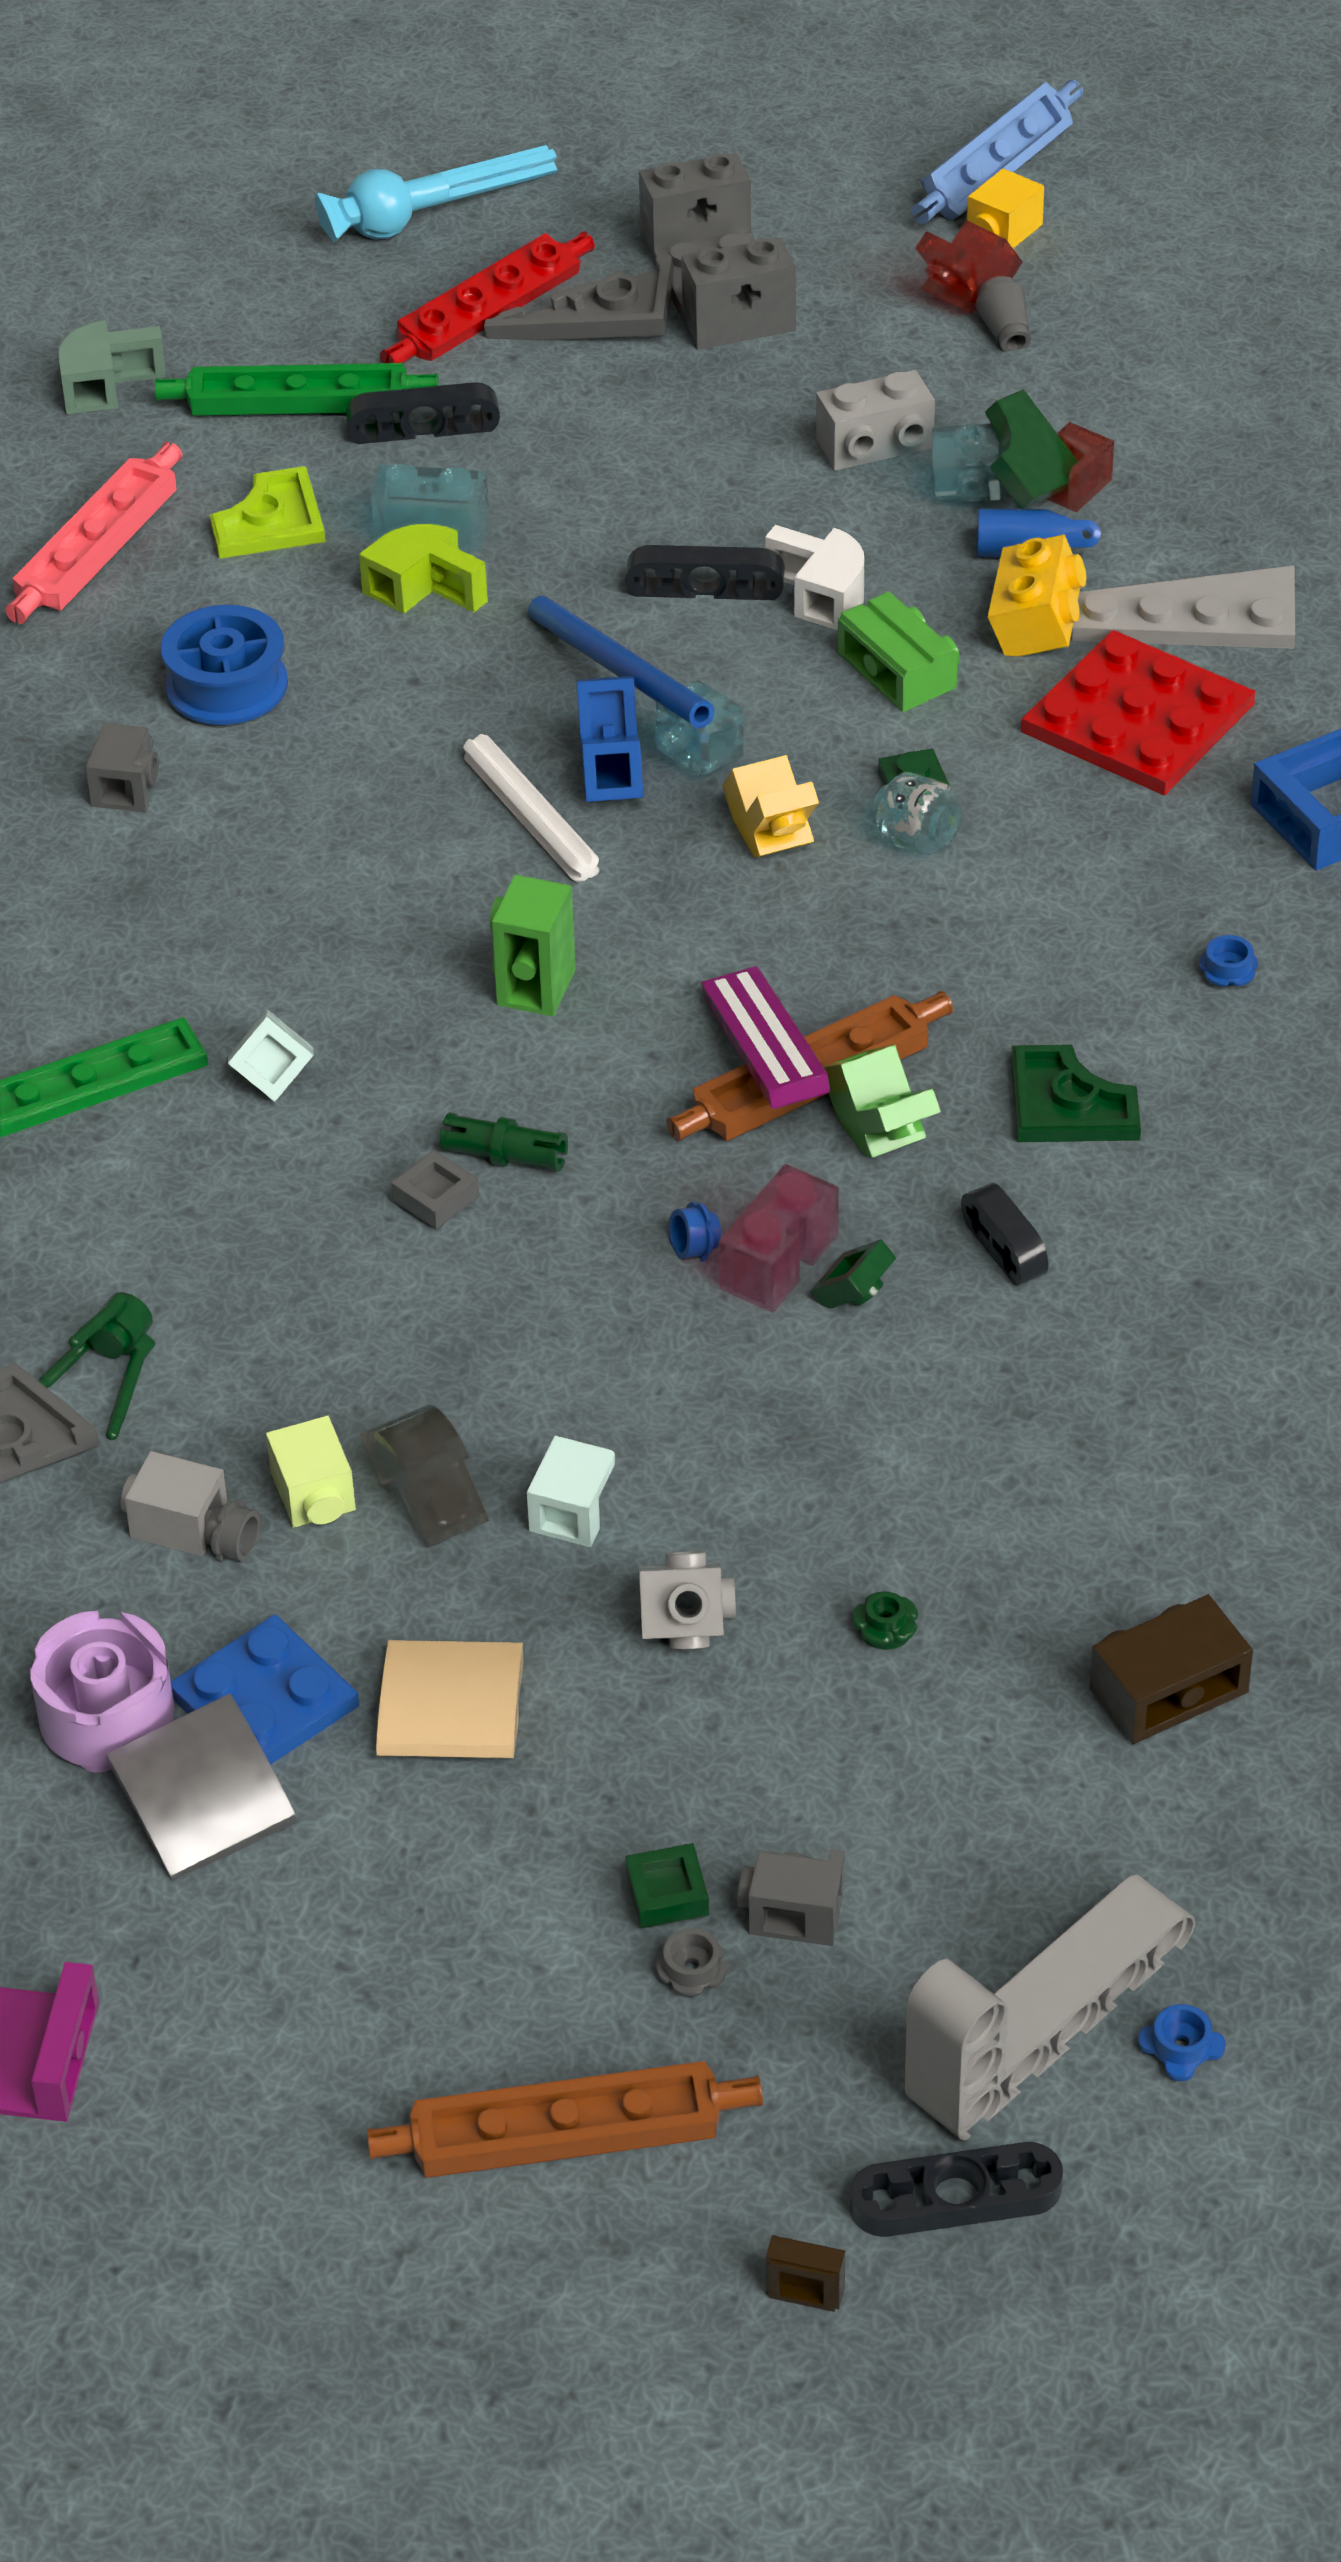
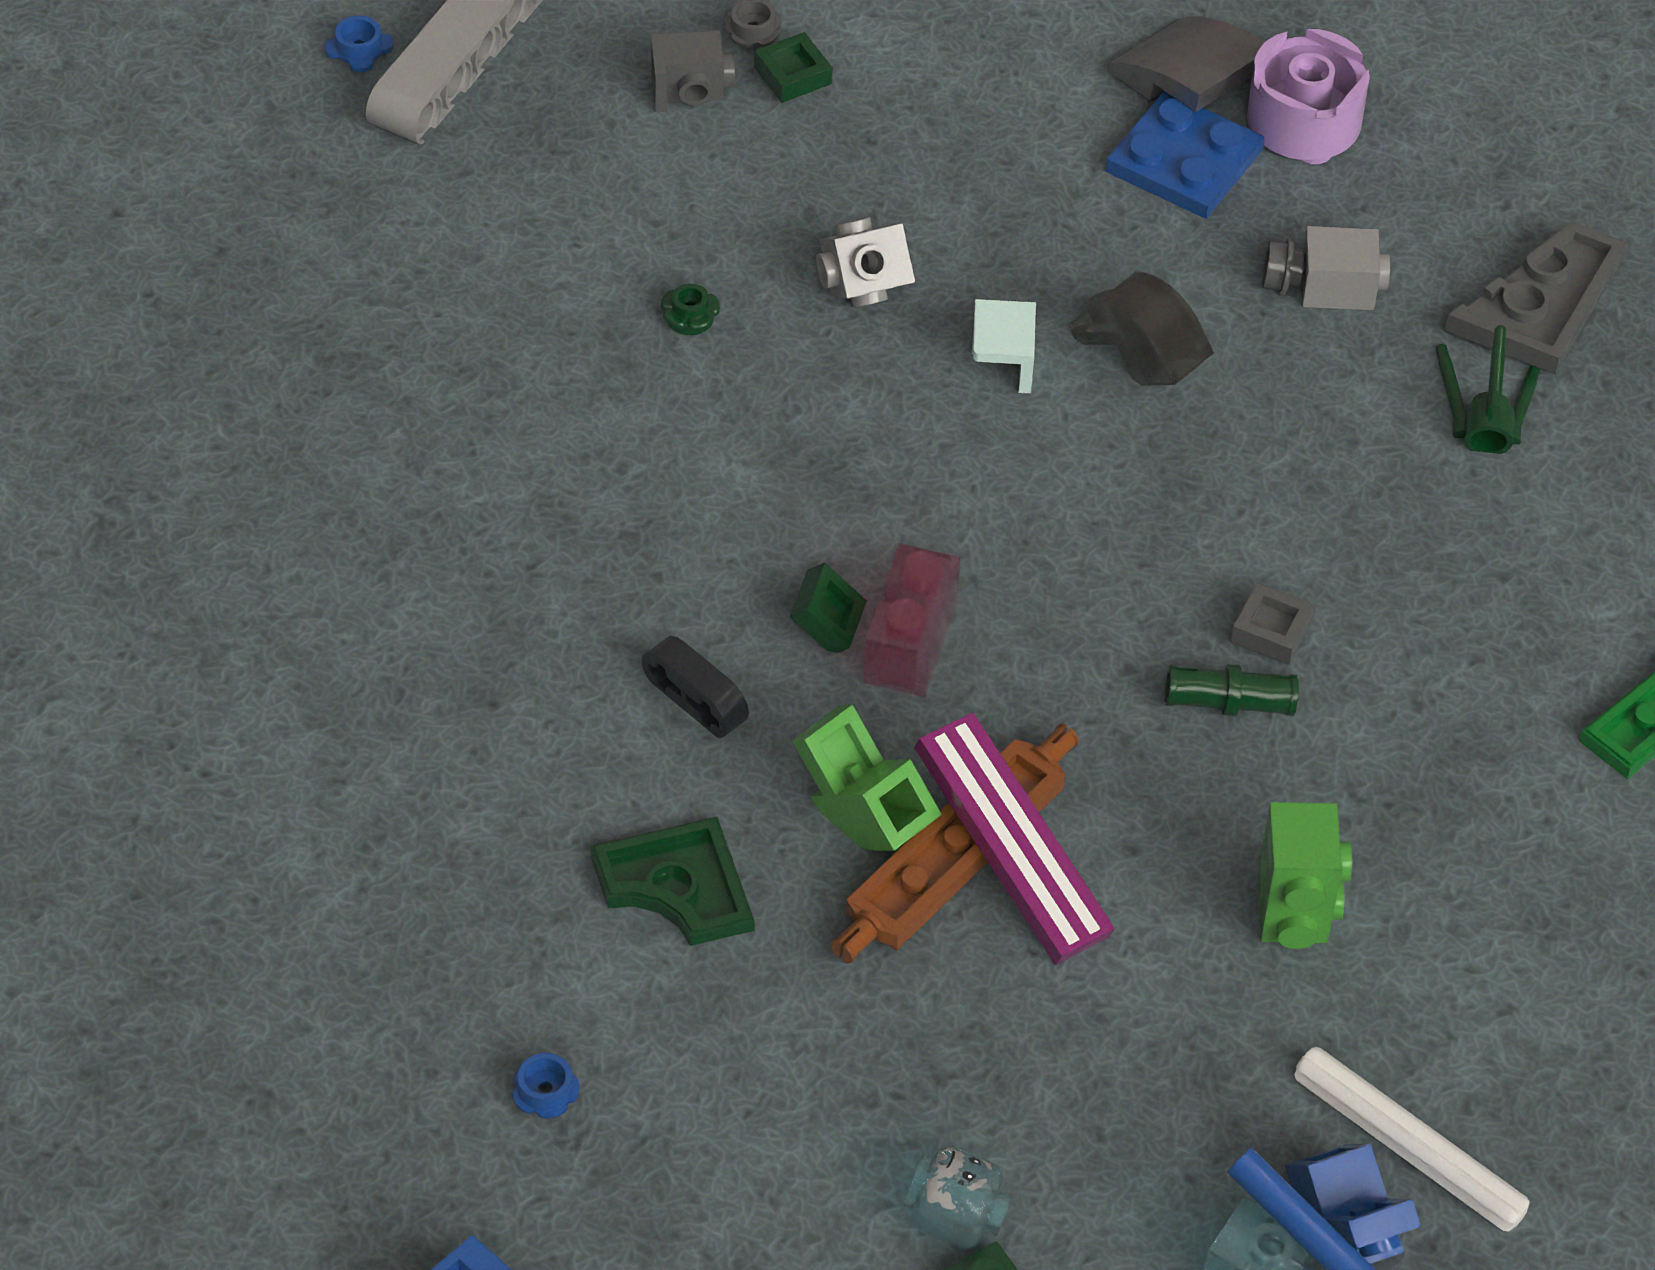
camera: 160 degrees right, 5 degrees up
(270, 1055) = (1514, 735): light aqua panel -> none
(311, 1472) = (1241, 317): yellowish green brick -> none
(450, 1699) = (1029, 172): tan slope -> none
(694, 1231) = (1001, 632): blue plate -> none
(770, 806) = (1121, 1161): yellow brick -> none
(1170, 1668) = (428, 285): dark brown brick -> none

